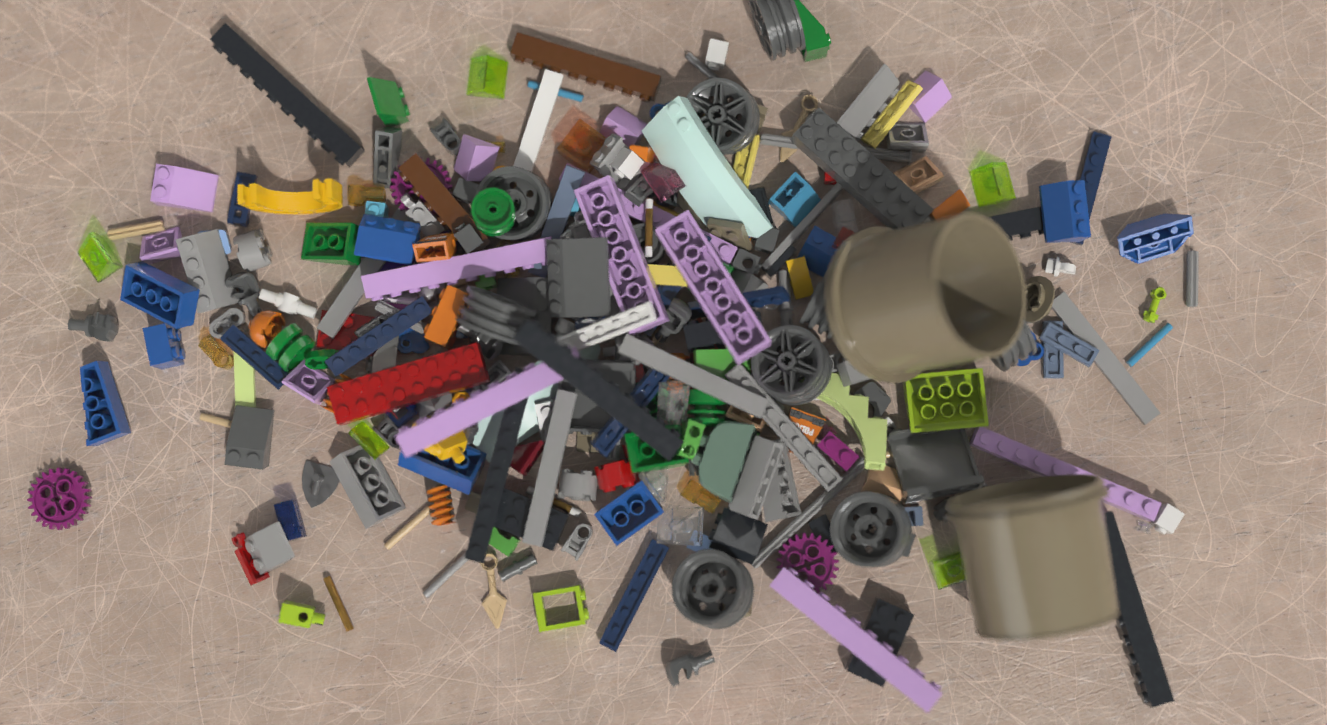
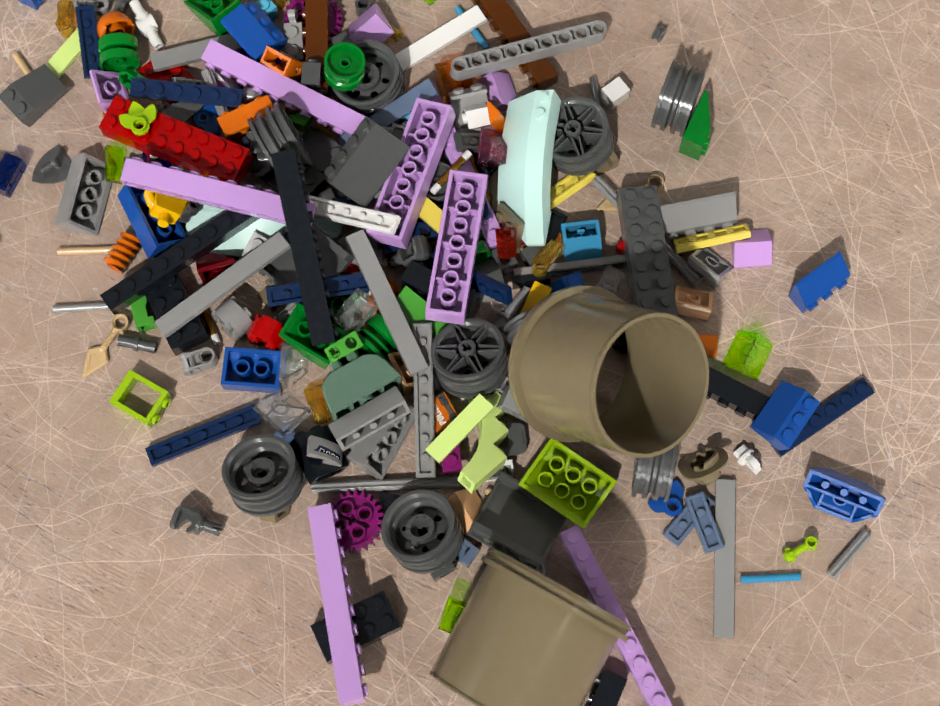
camera: 35 degrees right, 10 degrees down
(364, 389) = (138, 116): none -> lime plate
(622, 84) = (522, 56): none -> light grey beam
(742, 250) = (506, 243): none -> clear red brick
(744, 530) = (325, 450): none -> light grey slope
(782, 234) = (547, 258): none -> clear yellow piece
(832, 427) = (459, 428): none -> yellowish green tile
(1004, 83) = (820, 283): none -> blue slope

